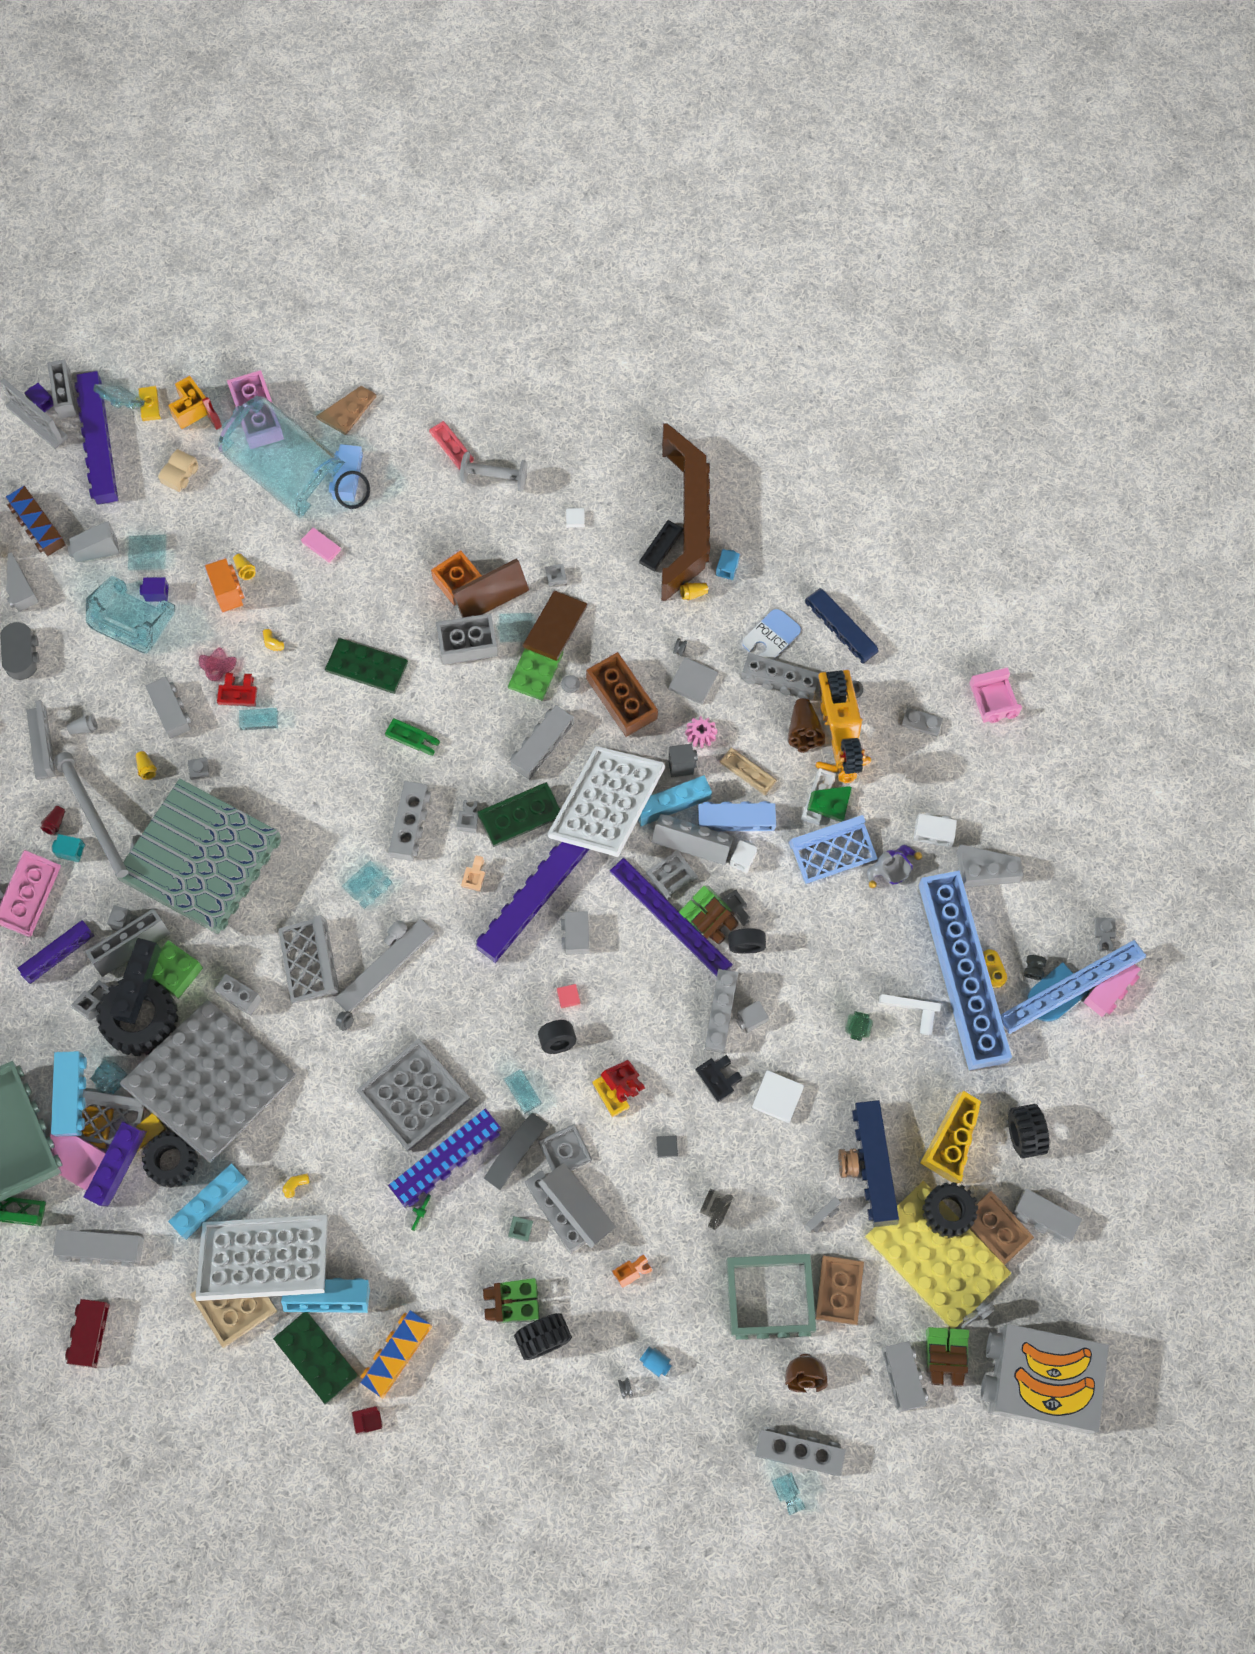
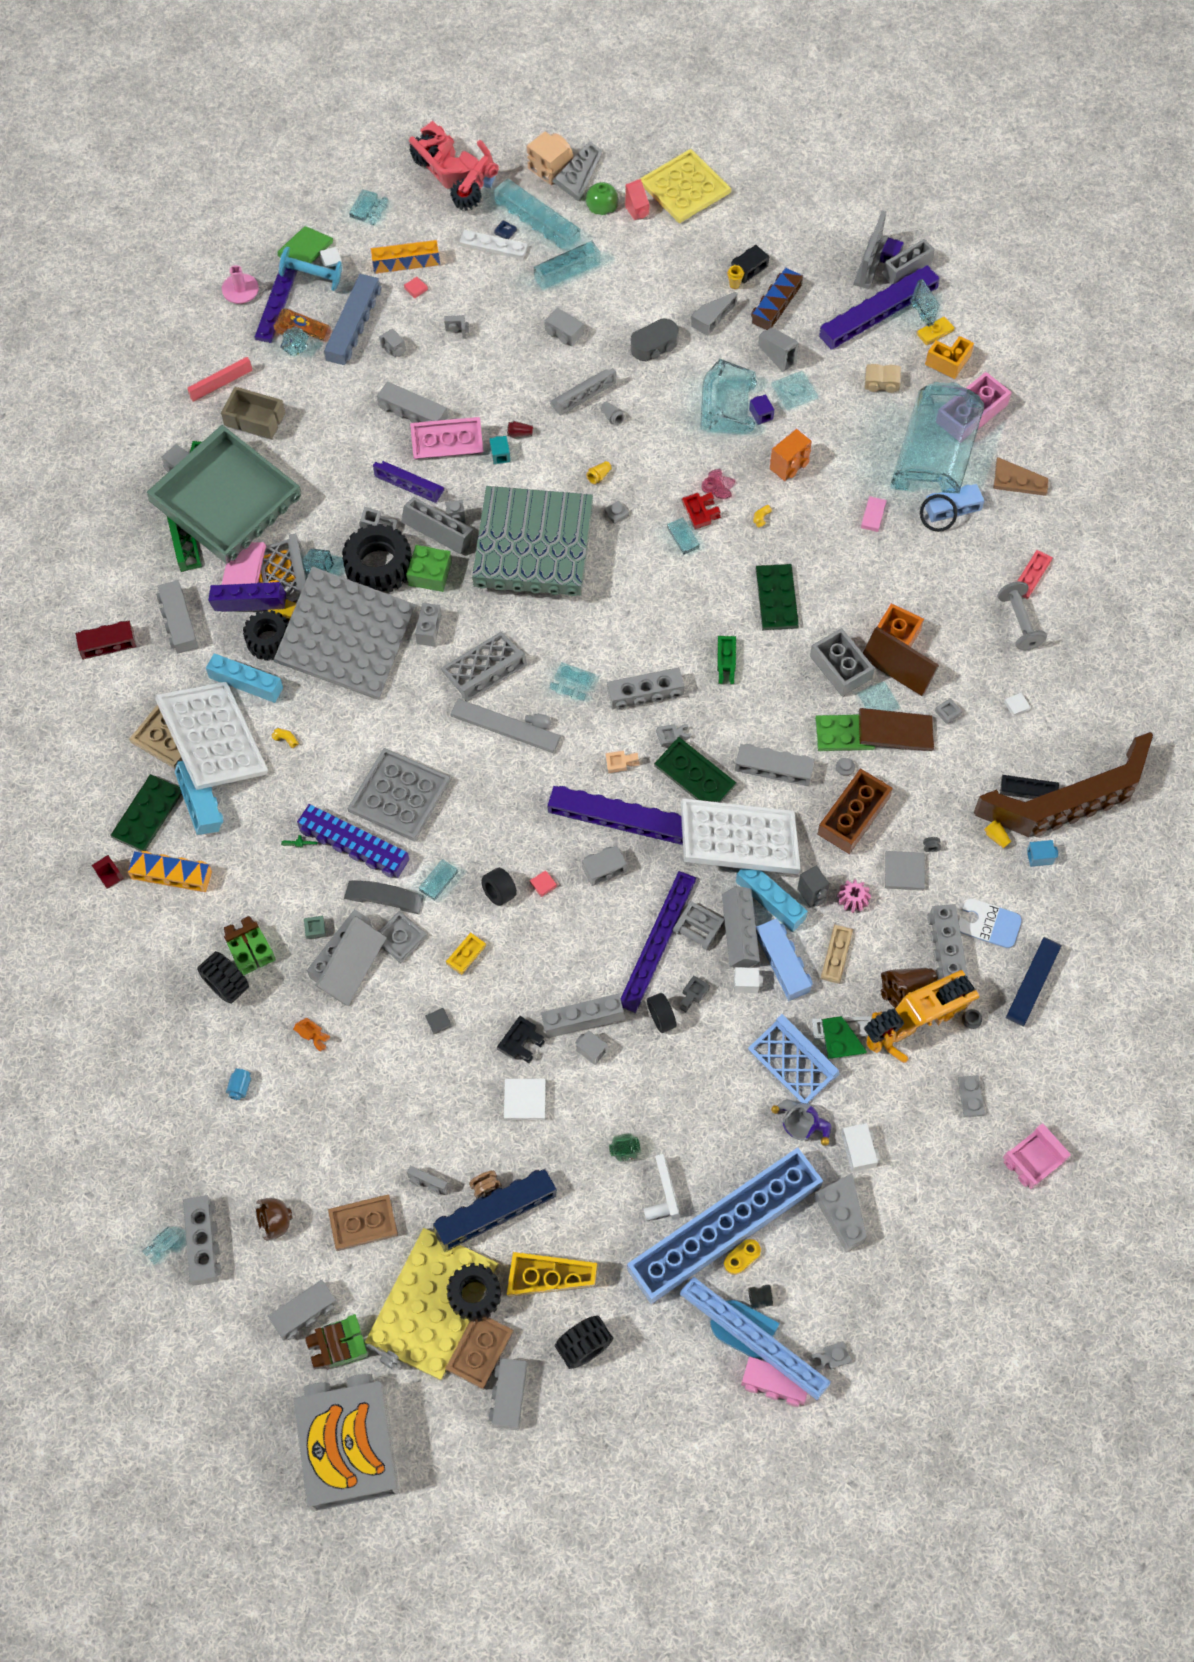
camera: 70 degrees right, 5 degrees down
(65, 763) = (571, 416): light grey piece -> none
(68, 1094) = (288, 536): medium azure brick -> none
(135, 981) = (399, 538): black brick -> none
(168, 707) = (659, 465): light grey brick -> none
(212, 414) = (950, 375): red tile -> none
(244, 567) = (818, 465): yellow cone -> none
(344, 1020) = (441, 714): dark grey plate -> none
(619, 1076) = (485, 952): red plate -> none
(625, 1388) = (206, 1067): dark grey bush -> none
(709, 914) = (673, 970): hips -> none
(716, 1207) = (396, 1083): clear smoke piece -> none
(770, 1261) = (349, 1194): sand green window -> none

